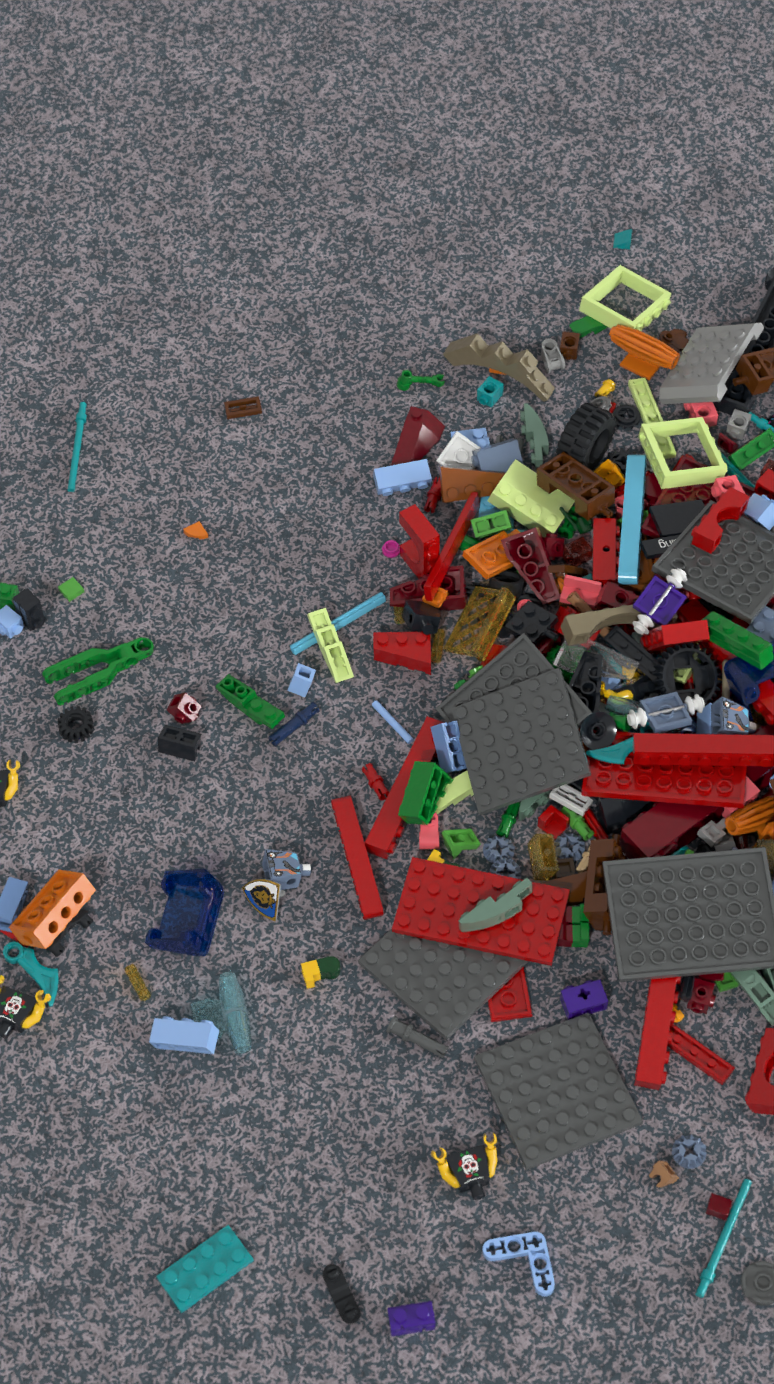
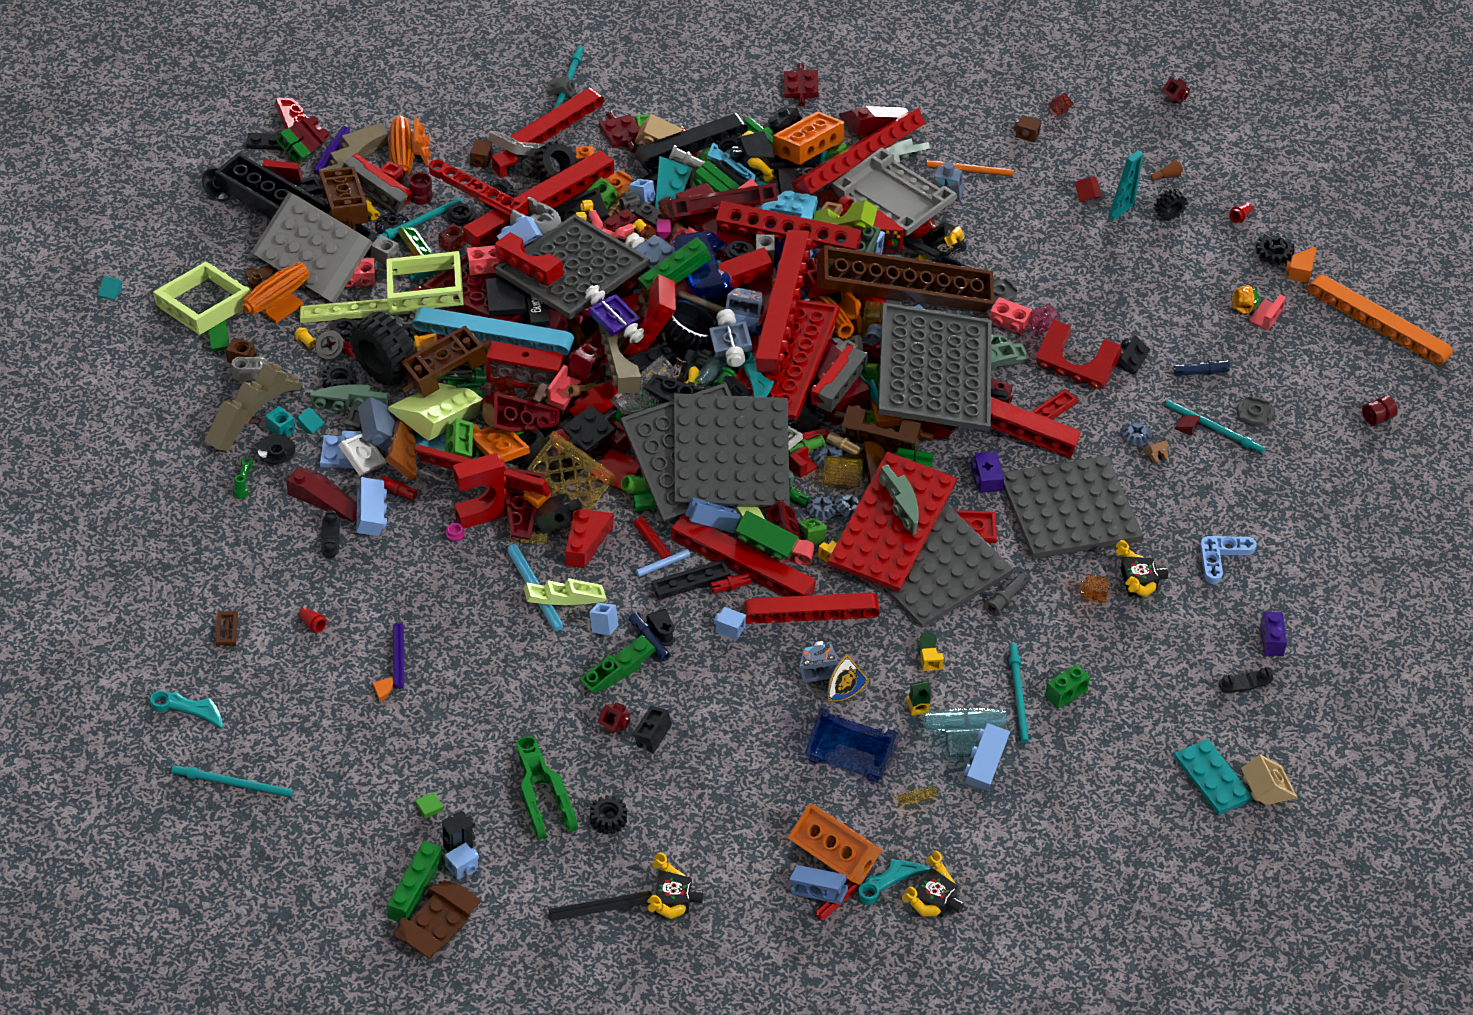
camera: 85 degrees left, 10 degrees down
(152, 408) = (202, 708): none -> teal piece
(202, 1326) = (1267, 781): none -> tan slope
(236, 534) = (398, 655): none -> dark purple axle
(252, 965) = (918, 696): none -> dark green leg
(261, 465) = (313, 620): none -> red cone
(295, 1106) = (1067, 686): none -> green brick
(307, 730) = (662, 626): none -> black piece
(321, 787) = (730, 623): none -> light blue brick
(325, 1055) = (1015, 663): none -> teal bar
(364, 458) = (330, 534): none -> black piece
(373, 747) = (690, 579): none -> black plate
(421, 707) = (651, 538): none -> red axle
(440, 1123) = (1094, 588): none -> clear orange brick
(457, 809) = (784, 517): none -> dark red brick
(458, 391) = (276, 449): none -> black dish
(501, 414) = (310, 421): none -> teal slope
(556, 416) = (338, 371): none -> black tyre
(647, 823) = (838, 378): none -> dark grey piece

